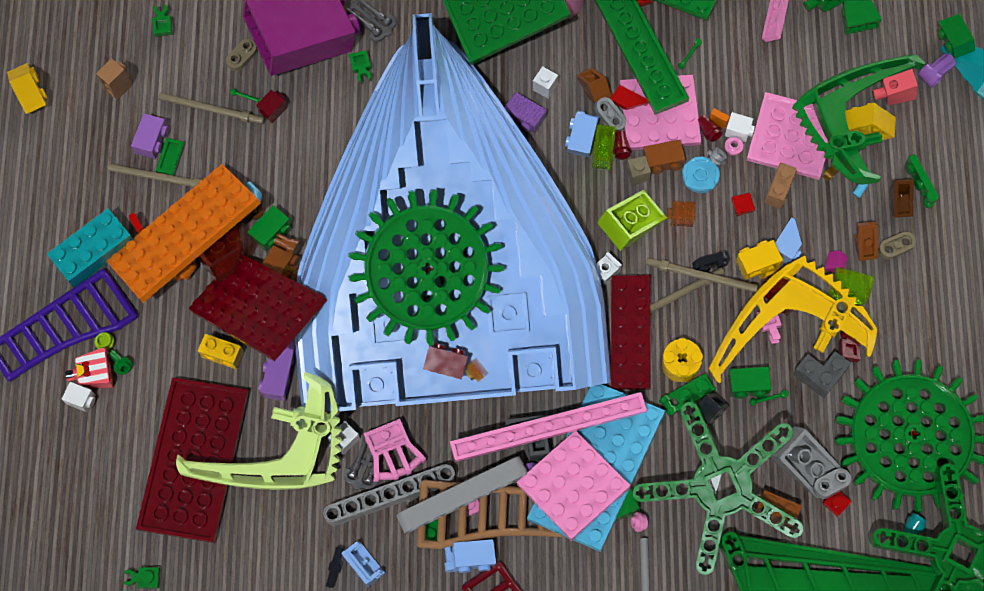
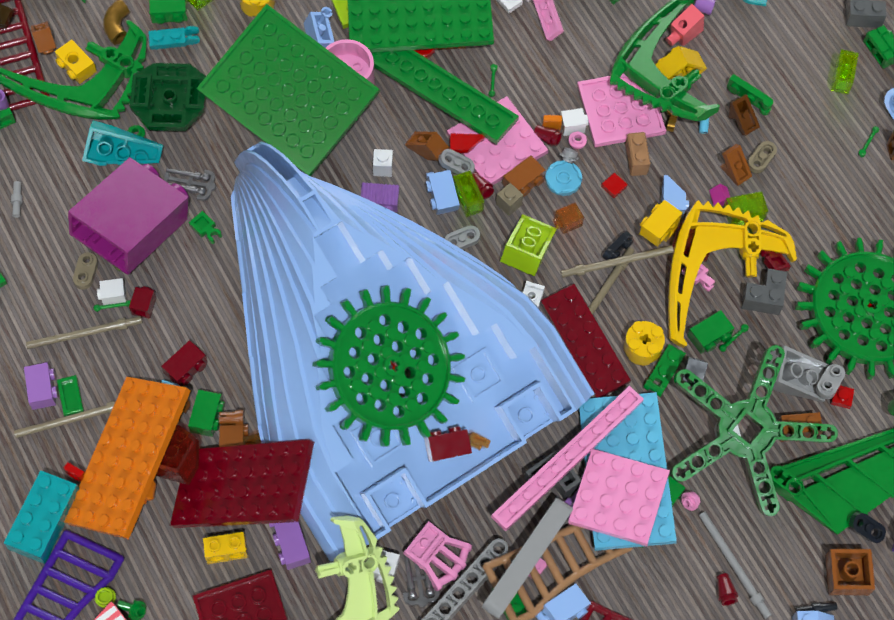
camera: 35 degrees left, 5 degrees down
(252, 84) = (112, 291): none -> white brick
(276, 177) = (185, 364): none -> dark red brick
(576, 183) = (461, 238): none -> light grey plate

